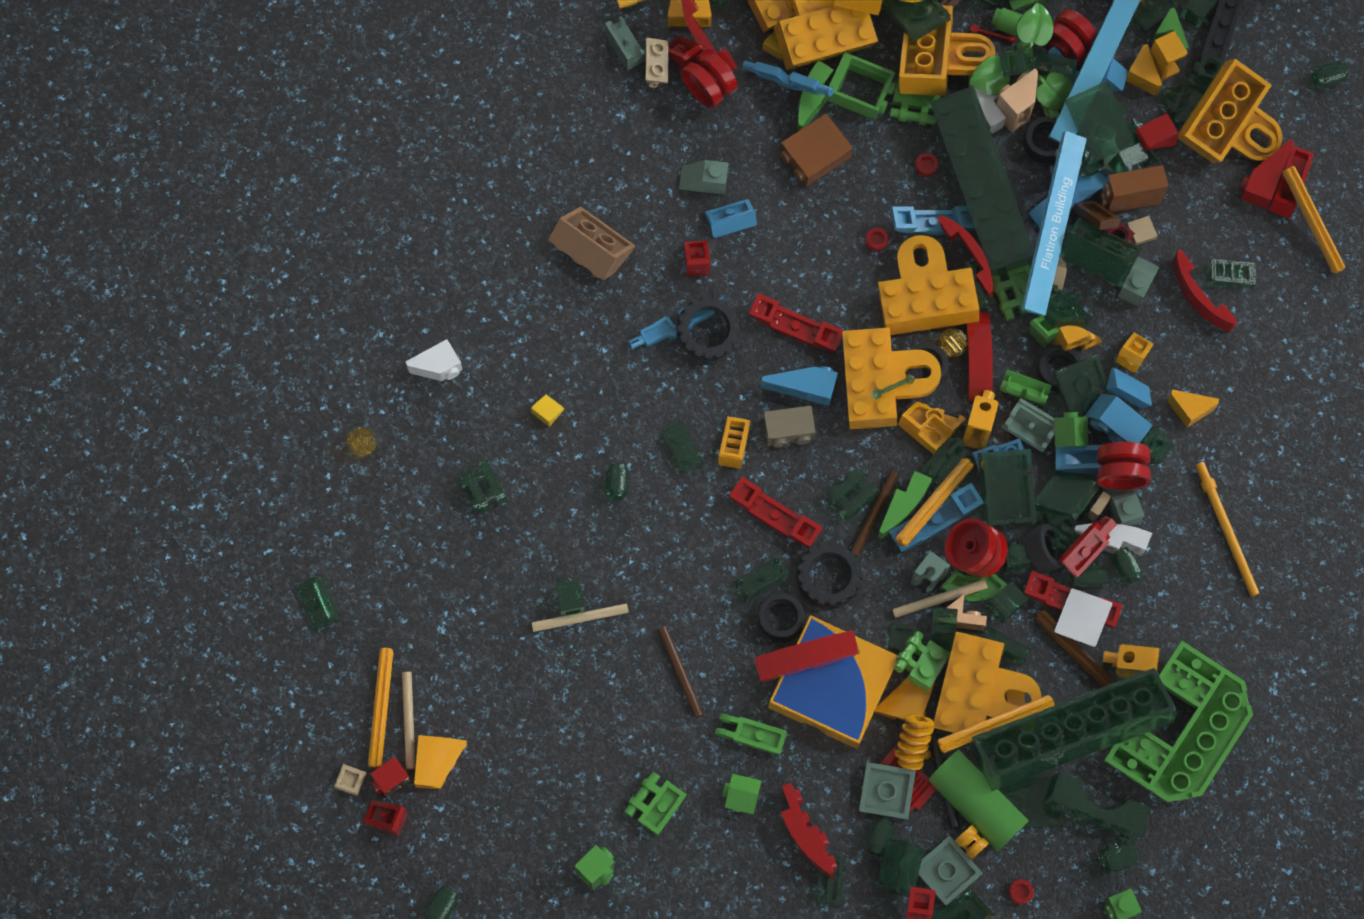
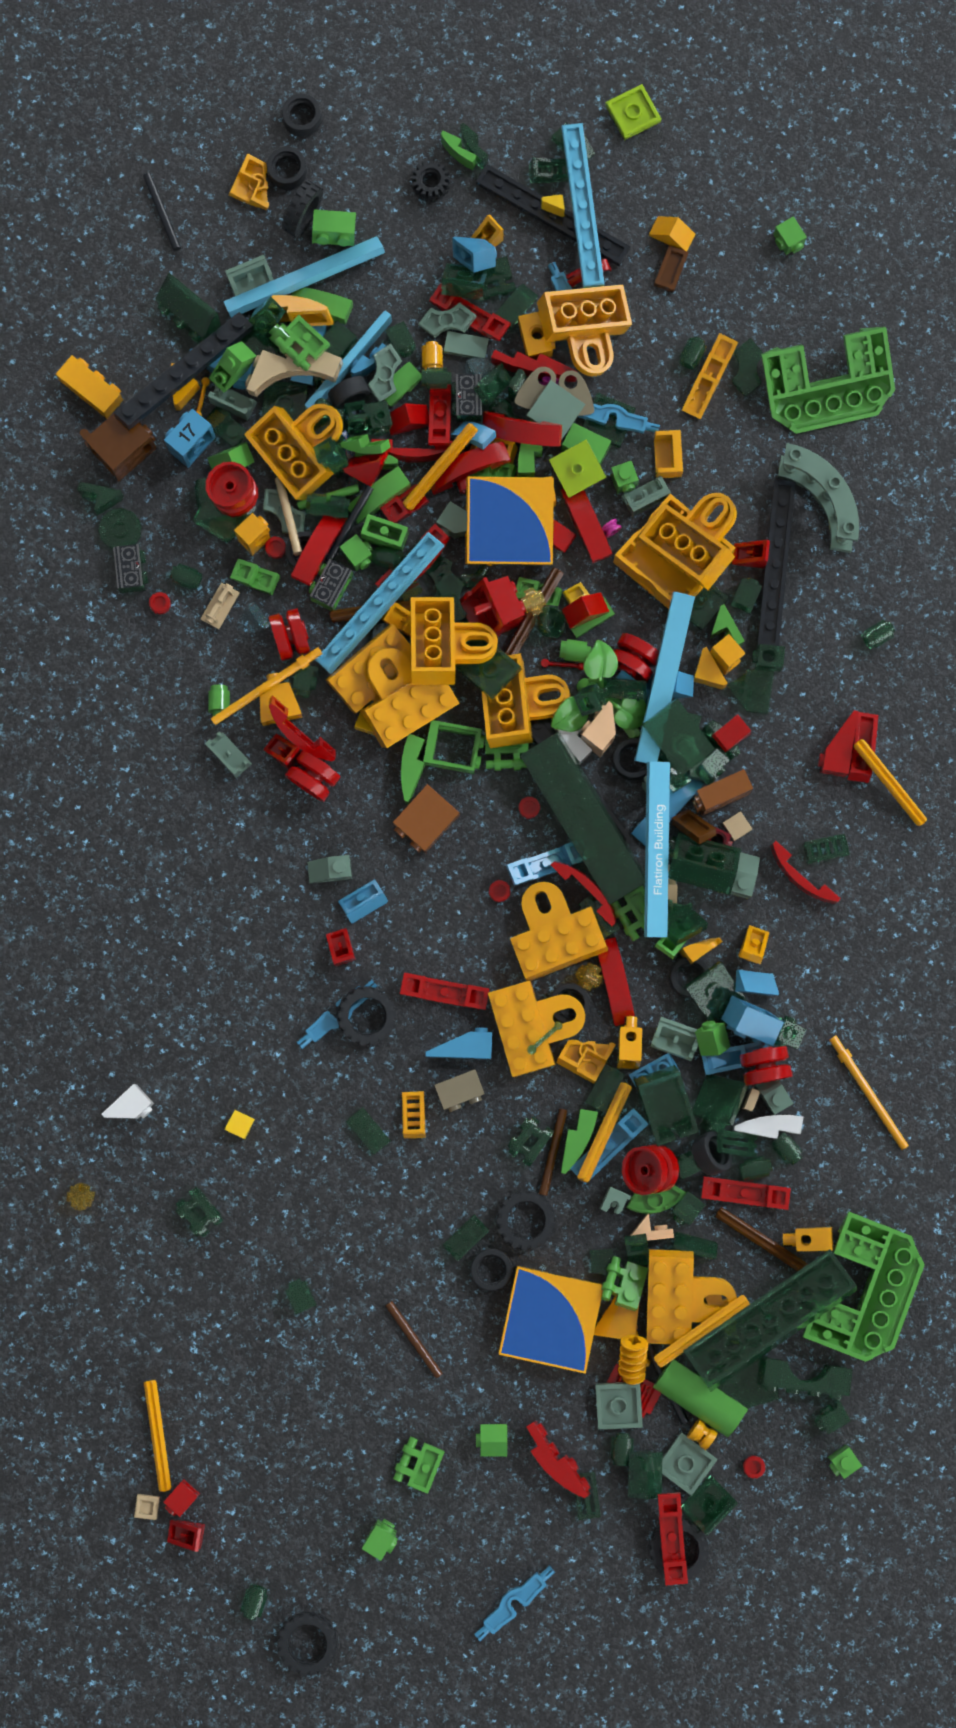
camera: 10 degrees left, 10 degrees up
(318, 603) = (79, 1352): clear green slope -> none
(408, 720) = (185, 1442): tan bar -> none
(435, 760) = (217, 1472): light orange slope -> none
(580, 617) = (314, 1310): tan bar -> none
(591, 243) = (242, 957): medium nougat slope -> none
(617, 482) = (318, 1179): clear green brick -> none
(656, 62) = (261, 767): tan hinge -> none
(753, 734) = (491, 1382): bright green hinge -> none
(774, 514) = (465, 1174): red slope -> none
(793, 81) = (383, 758): dark azure piece -> none
(807, 655) = (522, 1308): red slope -> none
(940, 598) = (628, 1219): tan bar -> none
(1025, 387) = (657, 1003): bright green hinge -> none
(1083, 617) = (758, 1208): white sticker -> none
(1087, 546) = (749, 1145): red hinge -> none
(1191, 406) = (814, 987): light orange slope -> none
(1229, 114) = (793, 701): light orange brick -> none

